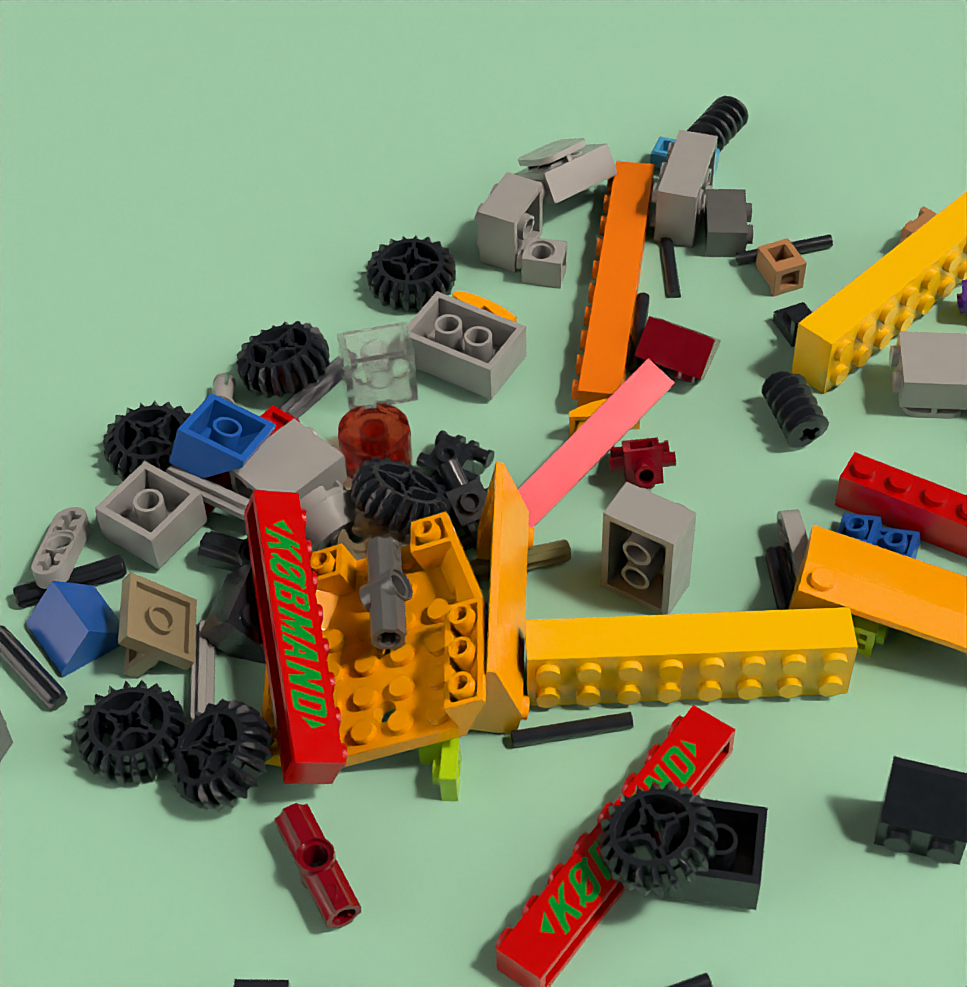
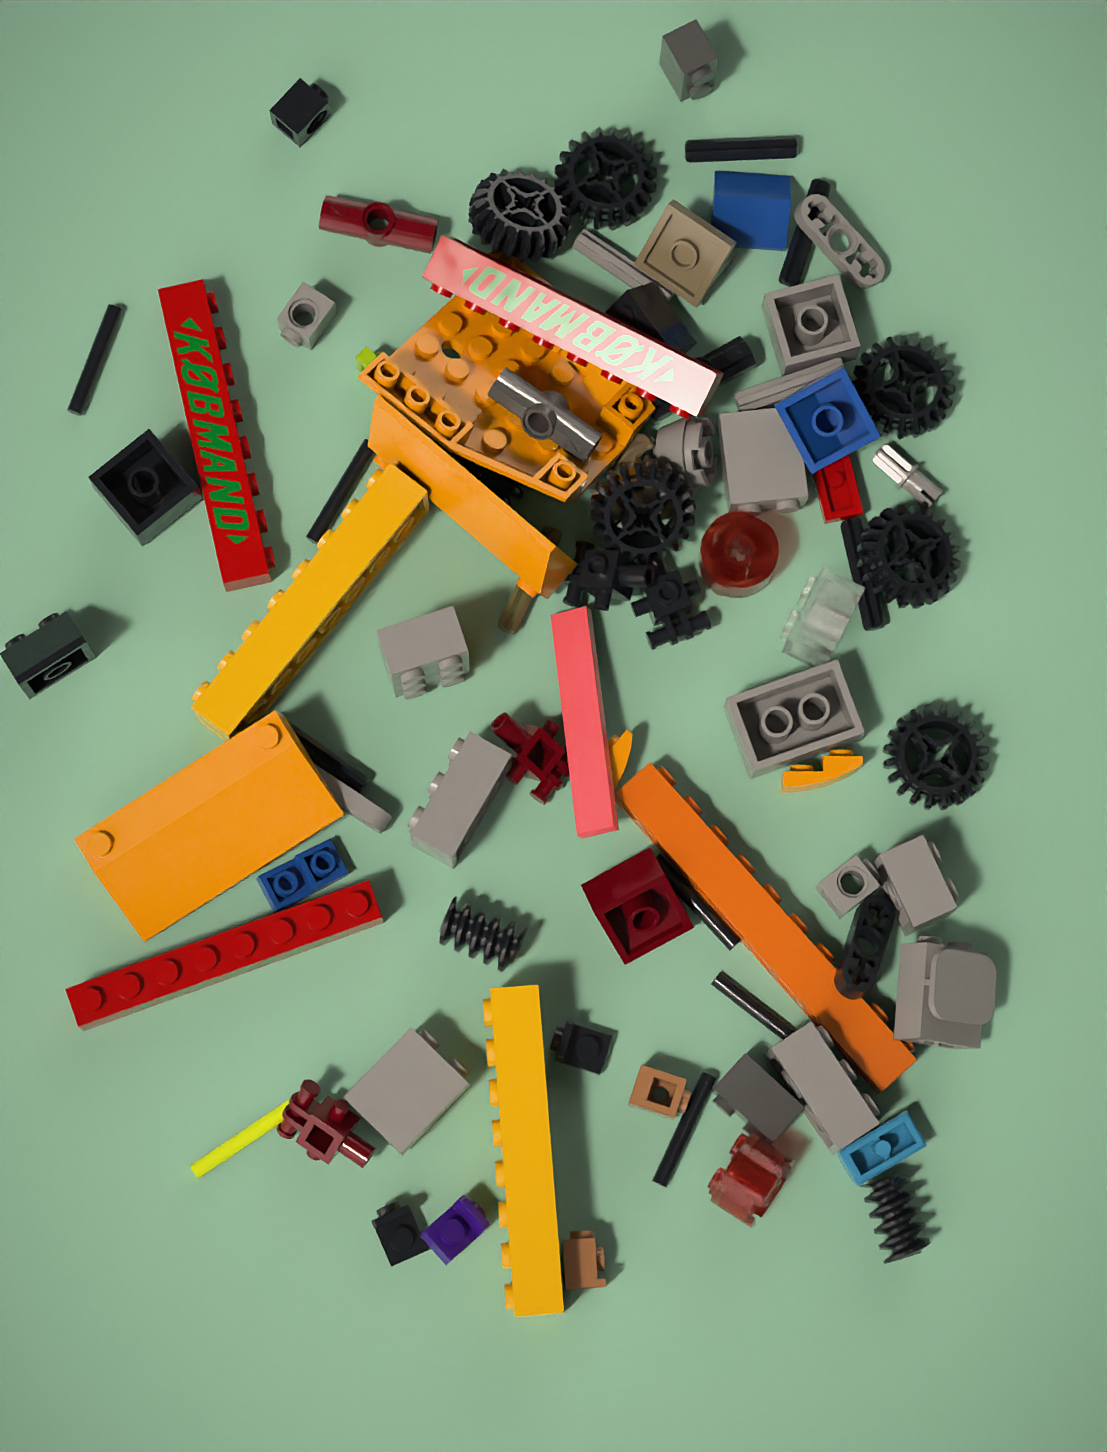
camera: 125 degrees right, 30 degrees up
(452, 840) = (306, 301): none -> light grey brick
(588, 217) = (853, 957): none -> black beam
(684, 831) = (197, 448): black gear -> none
(725, 468) = (459, 799): none -> light grey brick
(778, 187) = (750, 1178): none -> clear red brick

